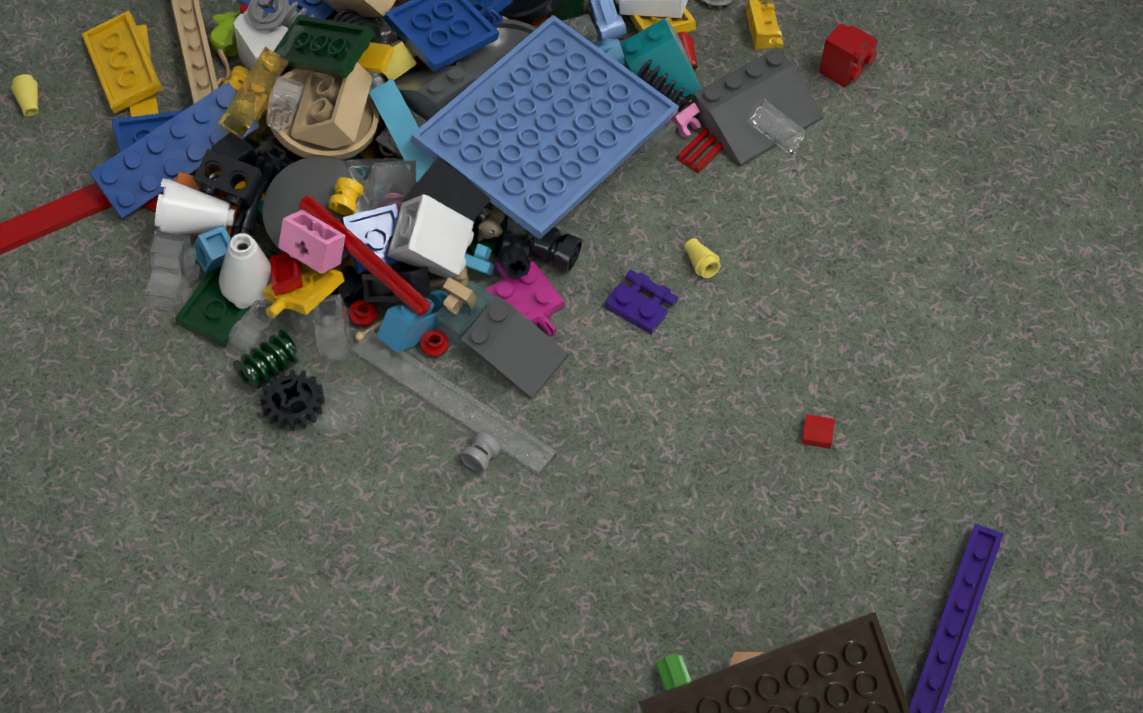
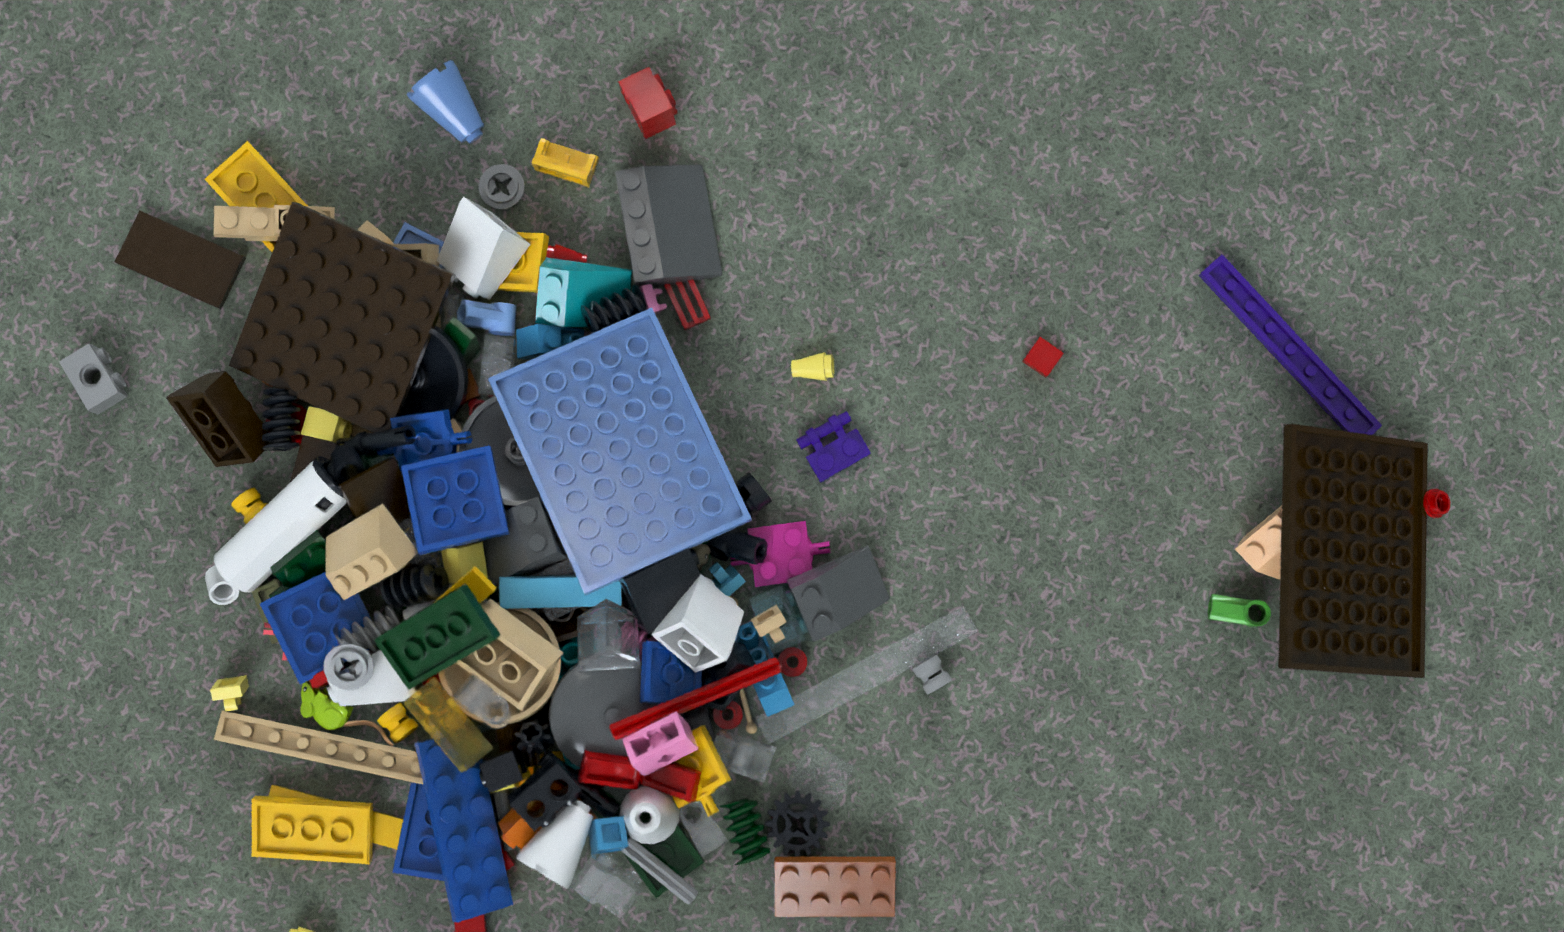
camera: 60 degrees left, 25 degrees up
(200, 307) = (660, 871): none -> light grey axle
(249, 450) = (835, 886): none -> plate
(268, 223) = (608, 770): none -> red tile
(345, 196) = (622, 688): yellow wheel -> none
(778, 127) = (703, 218): clear plate -> none

